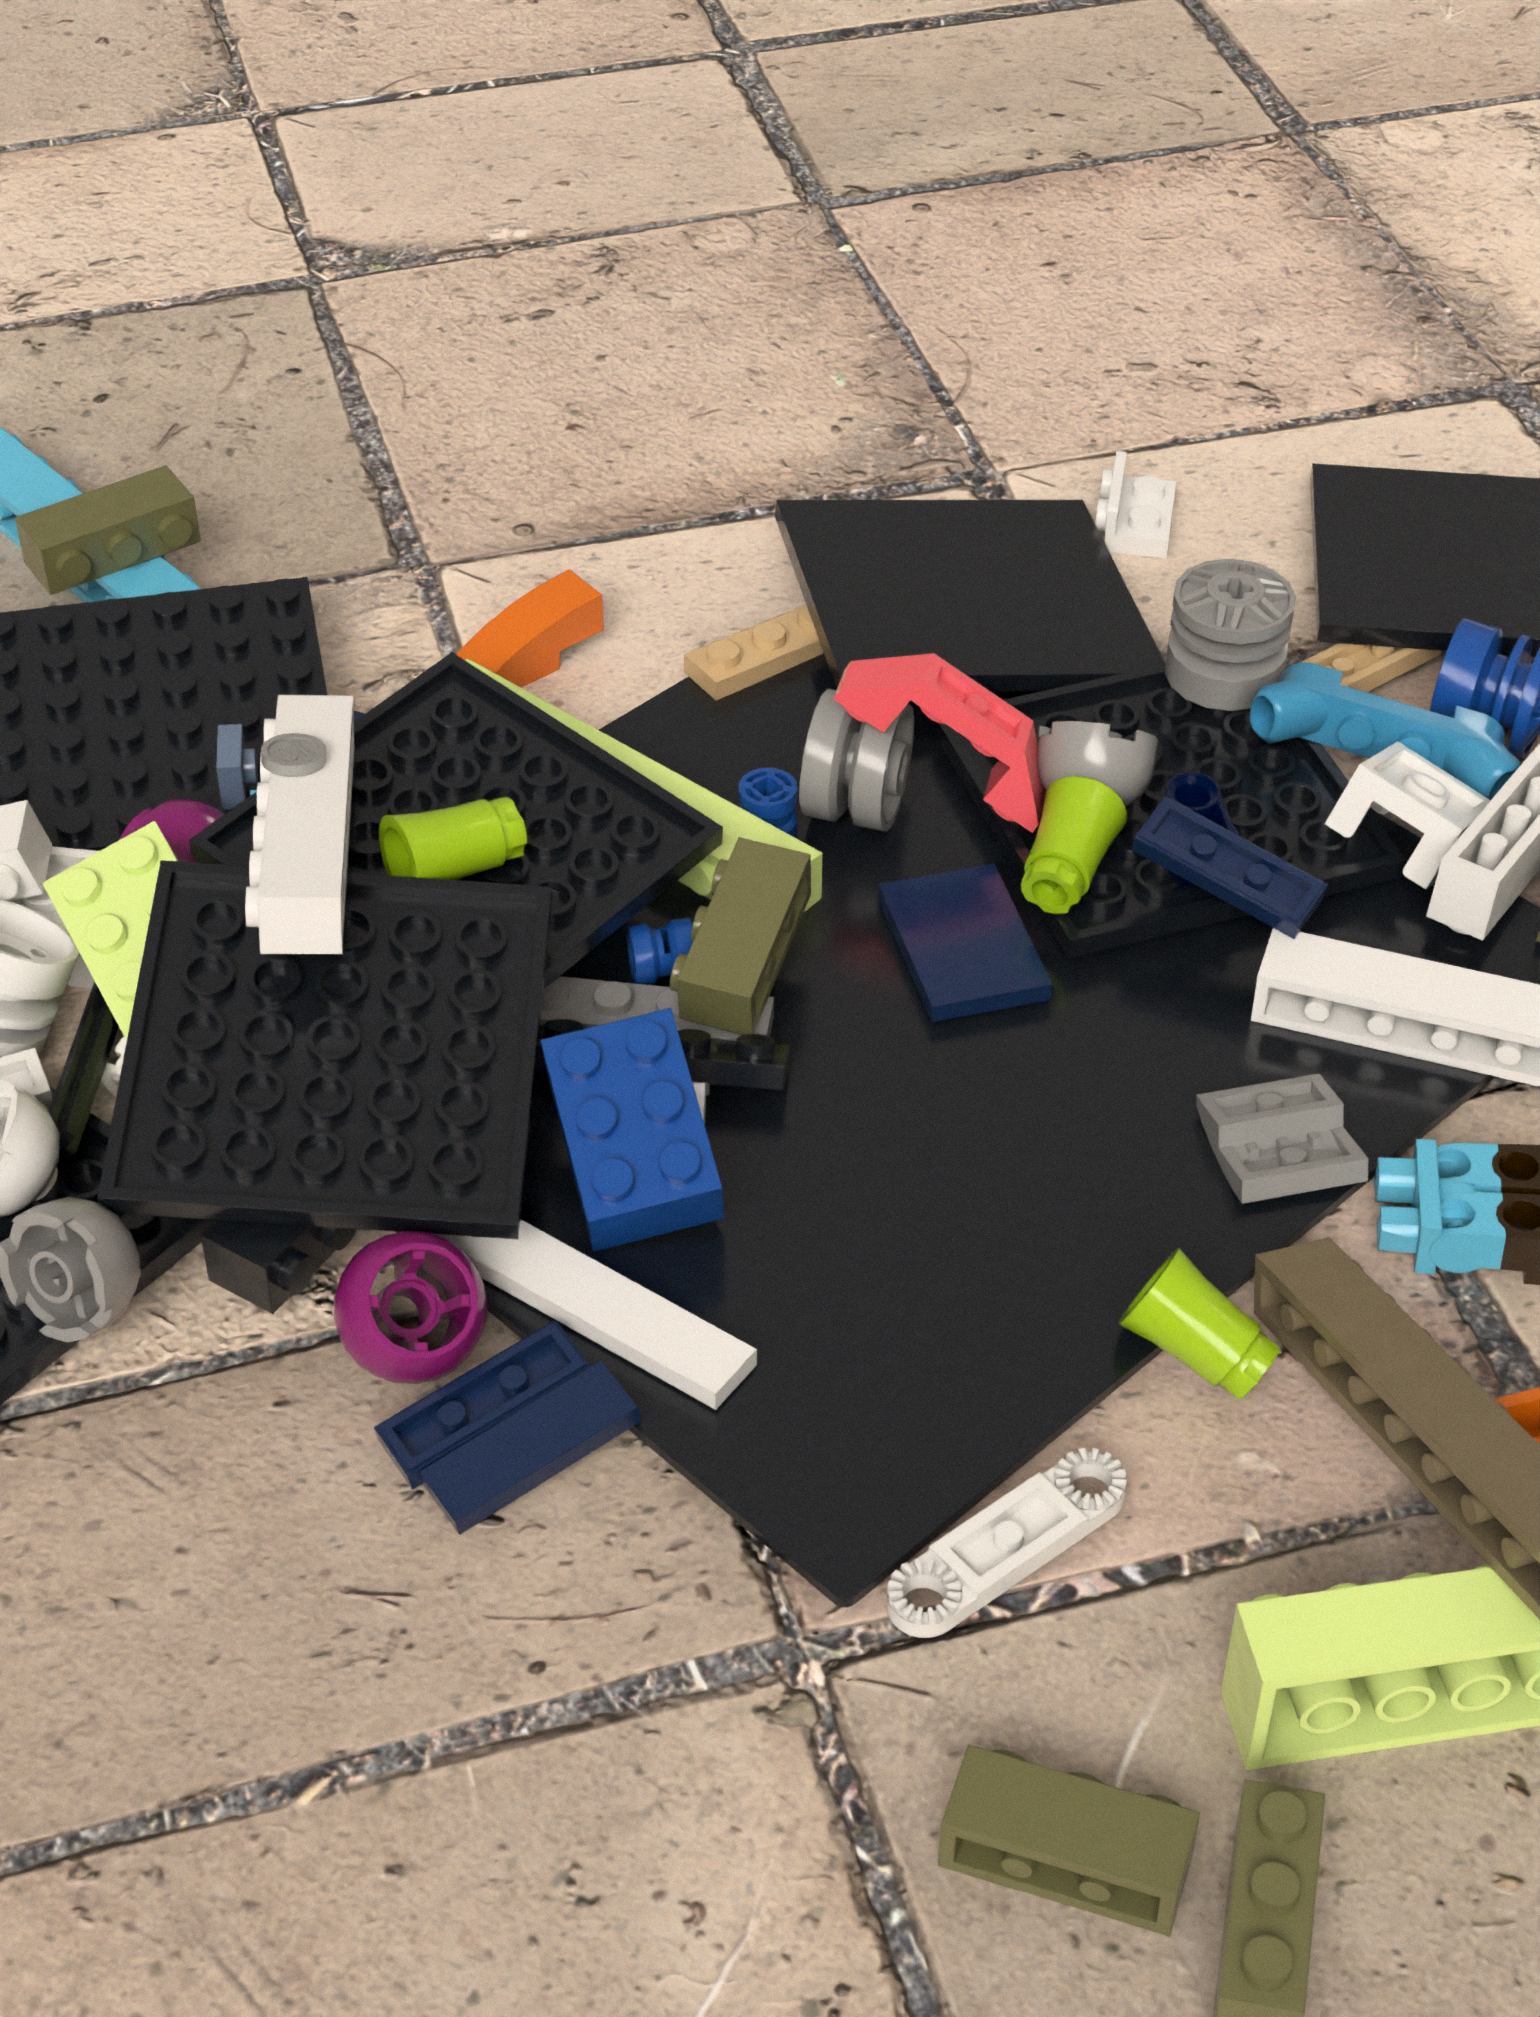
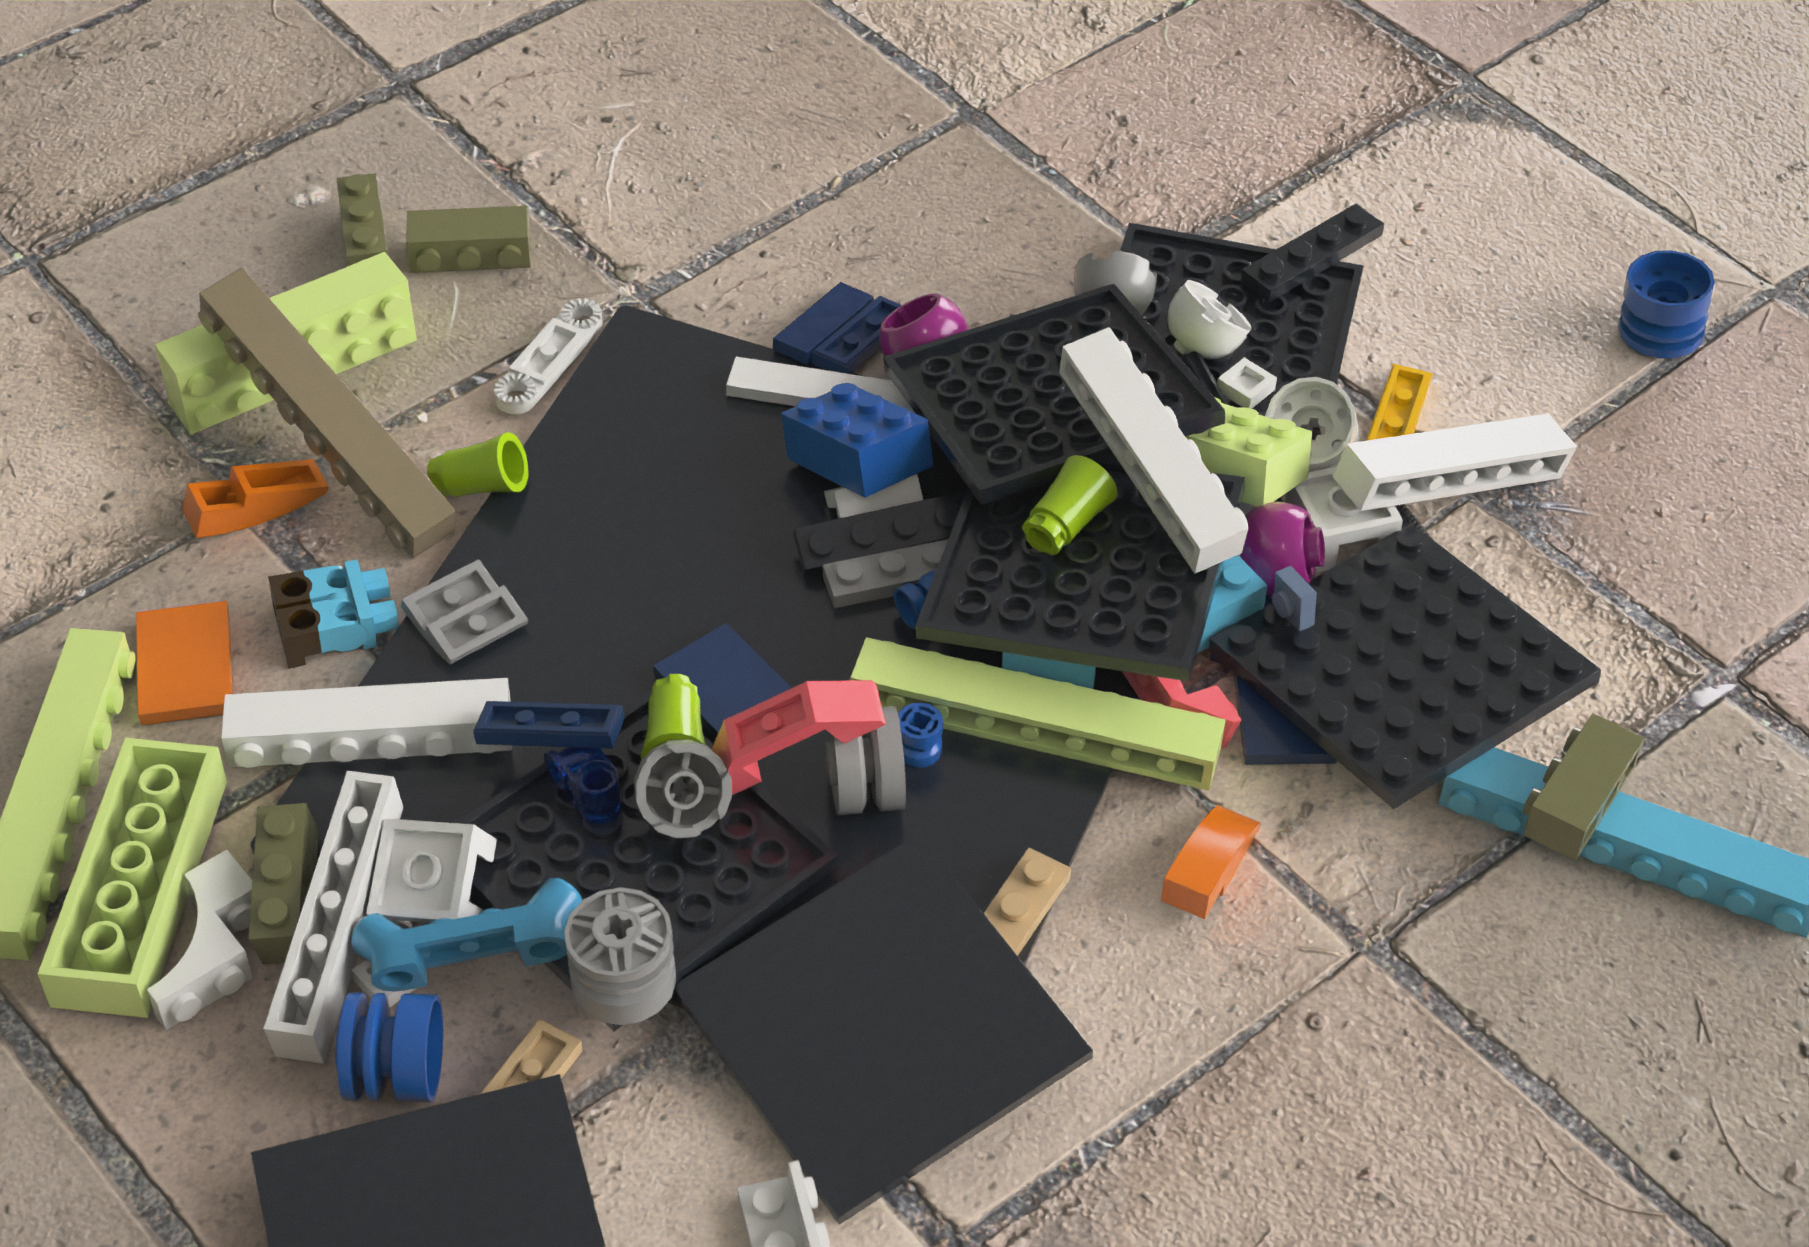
camera: 155 degrees right, 5 degrees up
(293, 755) = (1185, 459): light grey piece -> none
(742, 936) = (864, 578): olive brick -> none

